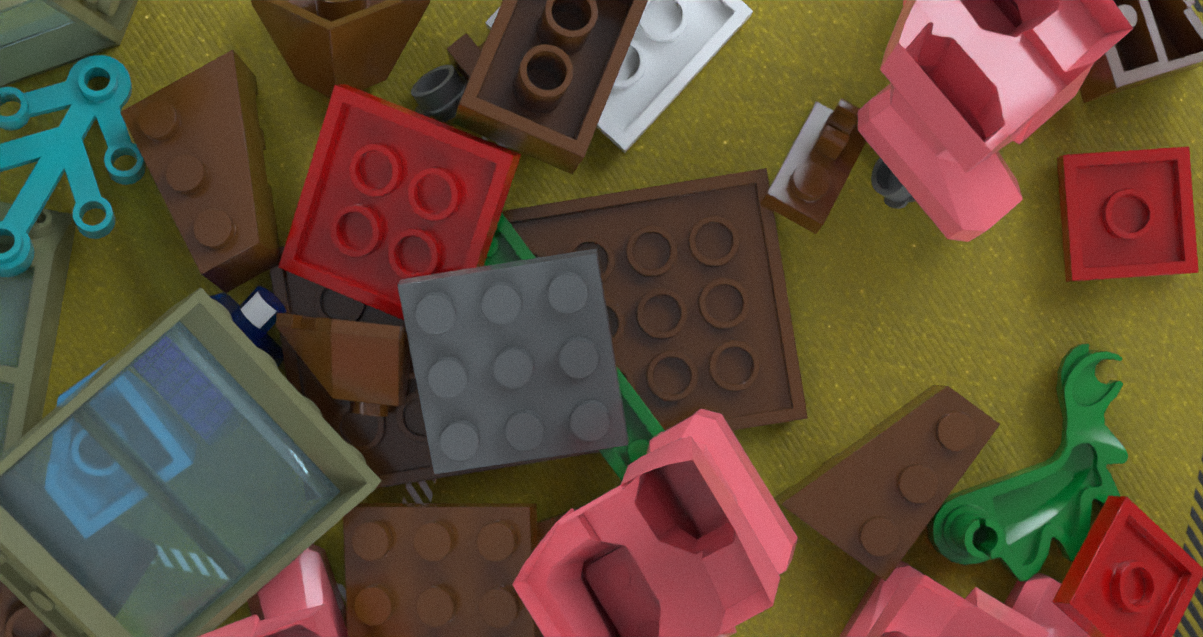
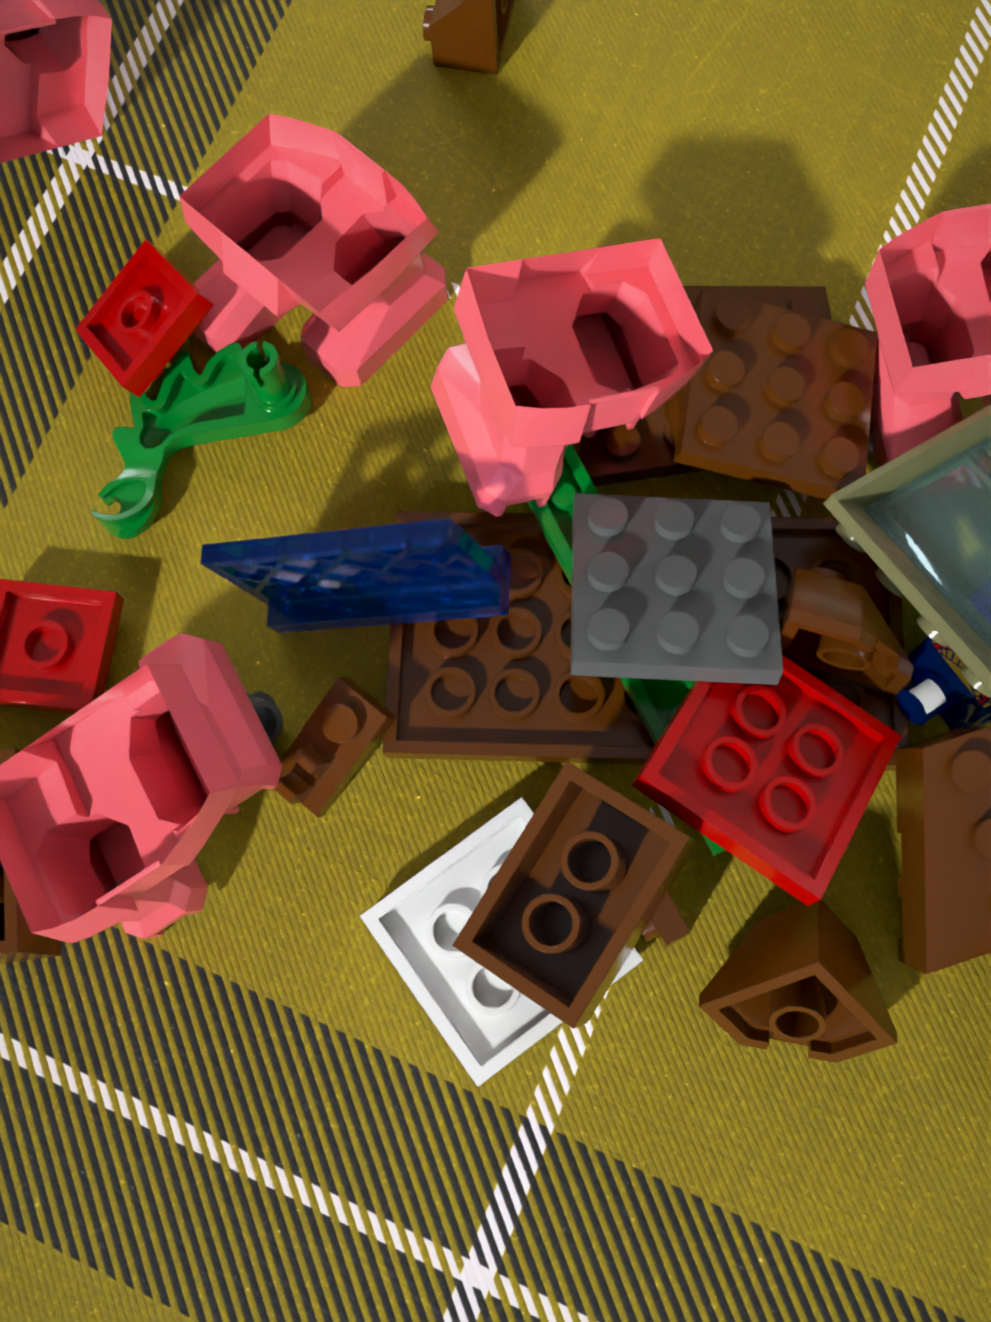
camera: 160 degrees left, 15 degrees down
(439, 93) = (703, 895): dark grey plate -> none
(807, 326) = (367, 575): none -> clear blue fence
(892, 479) = (330, 443): reddish brown wedge -> none

